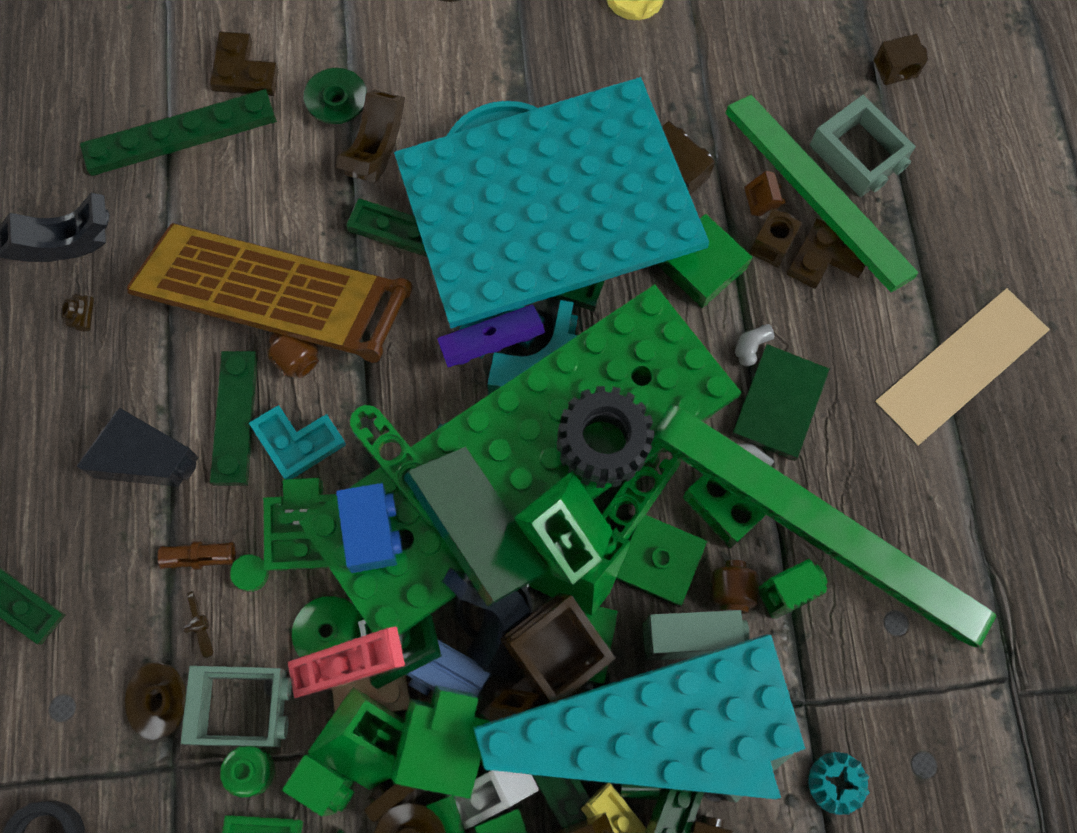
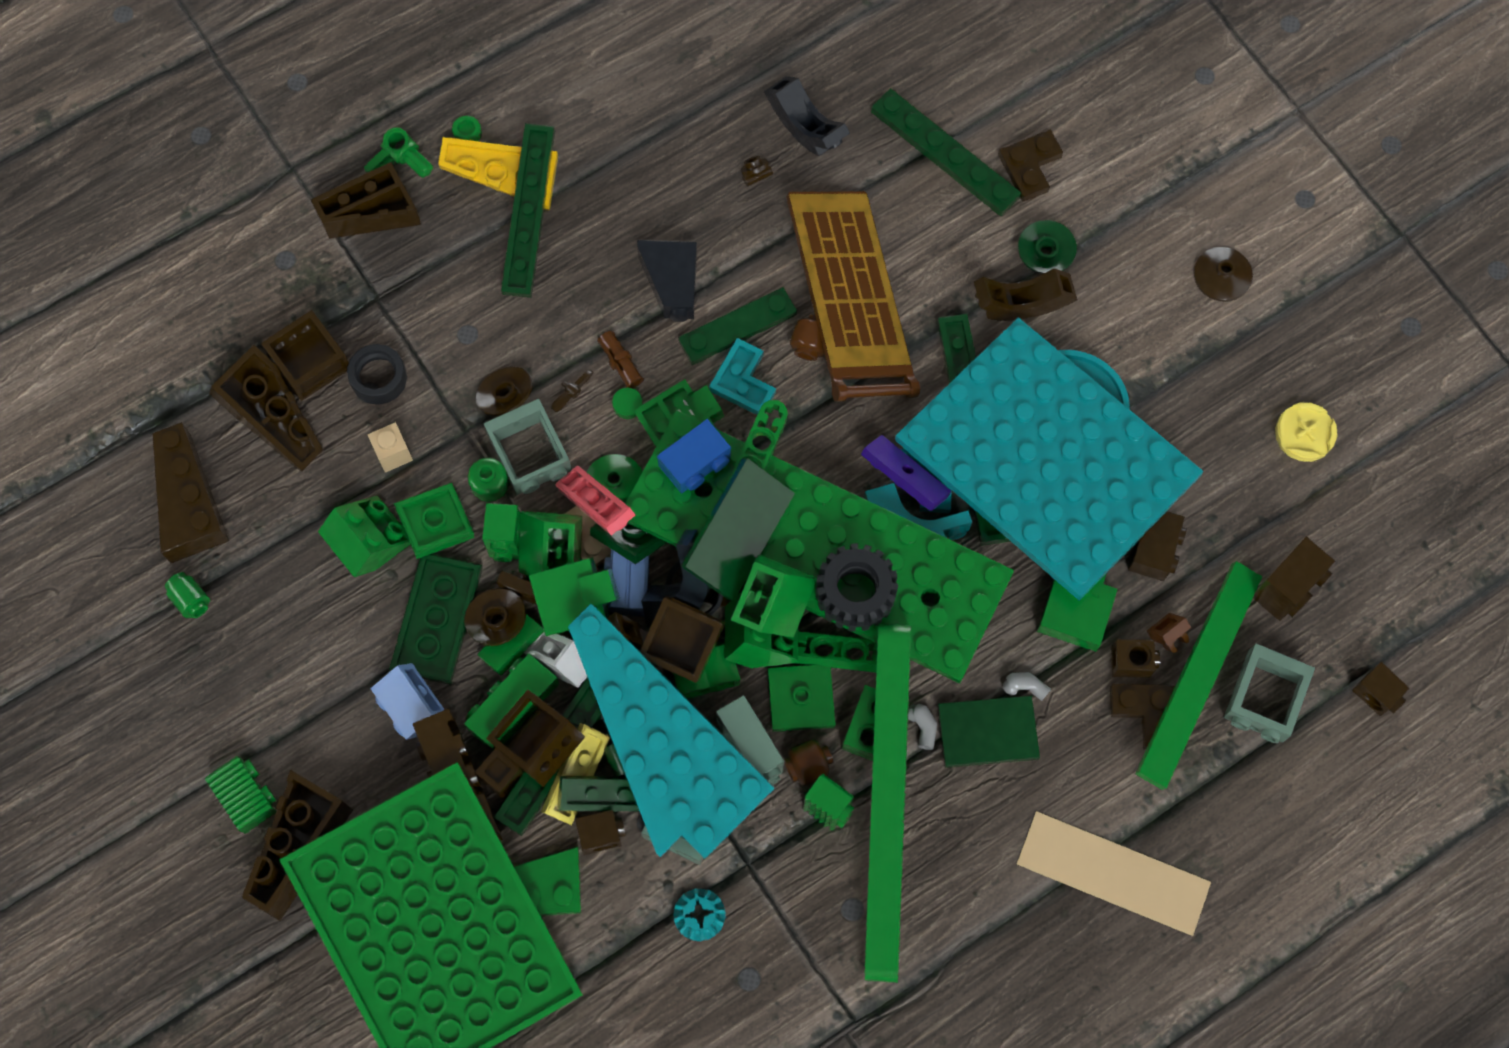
camera: 65 degrees right, 0 degrees up
(778, 65) = (1290, 583): none -> dark brown brick

